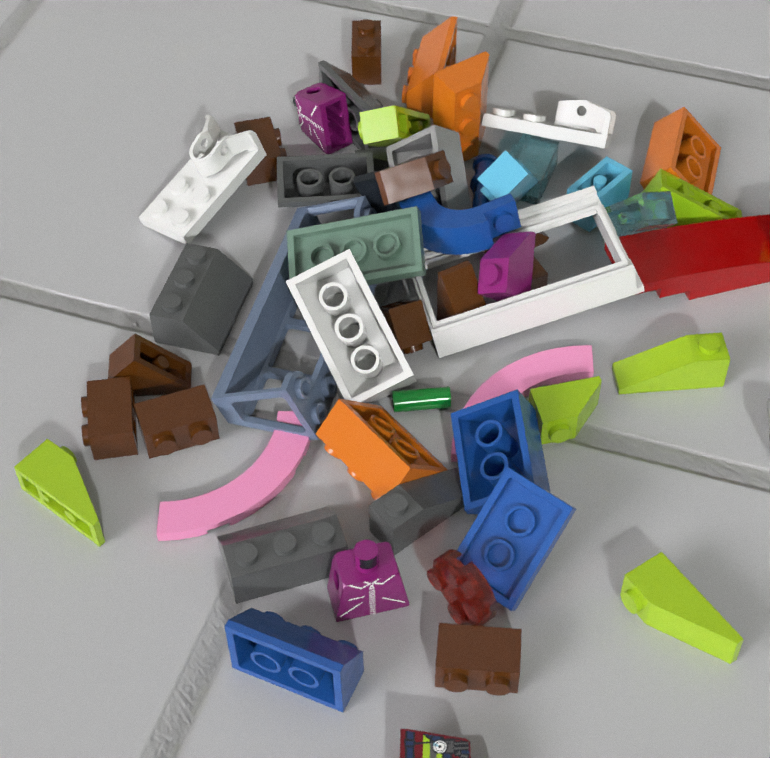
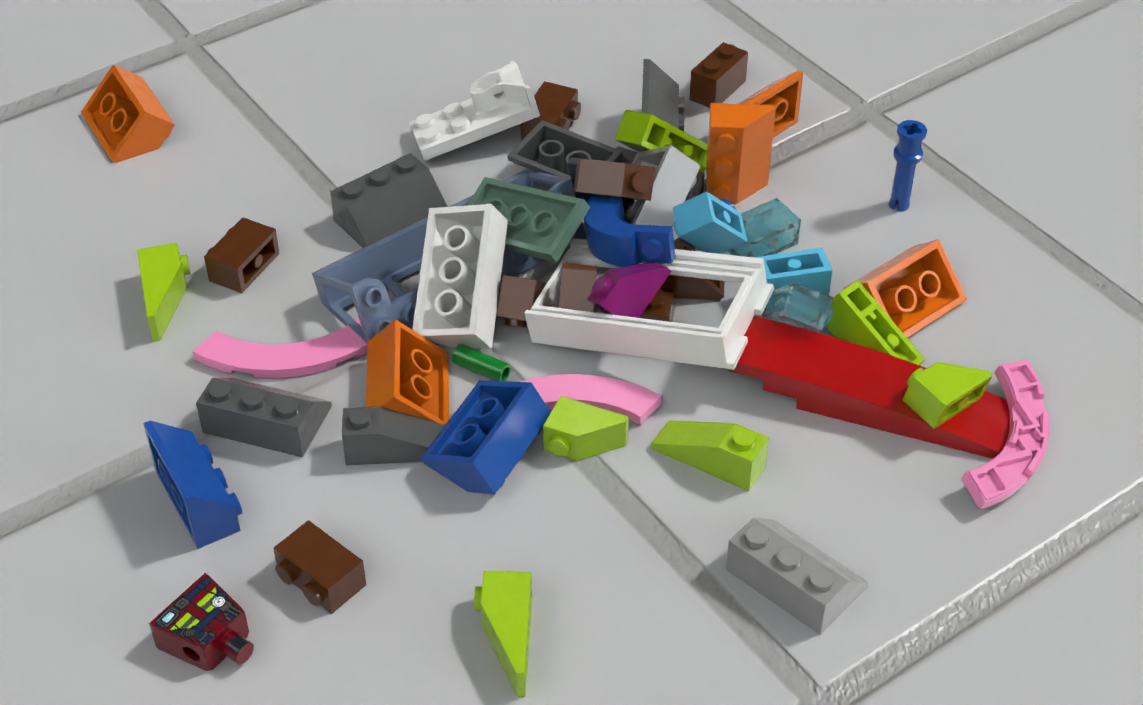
camera: 35 degrees right, 5 degrees down
(150, 367) = (303, 235): reddish brown slope -> none
(177, 421) = (281, 281): reddish brown brick -> none
(324, 116) = (623, 95): magenta torso -> none
(365, 581) = (295, 464): magenta torso -> none
(463, 588) = (353, 509): clear red plate -> none
(514, 535) = (424, 493): blue plate -> none
(570, 125) = (823, 210): white plate -> none
(602, 48) = (907, 154): none -> blue pin

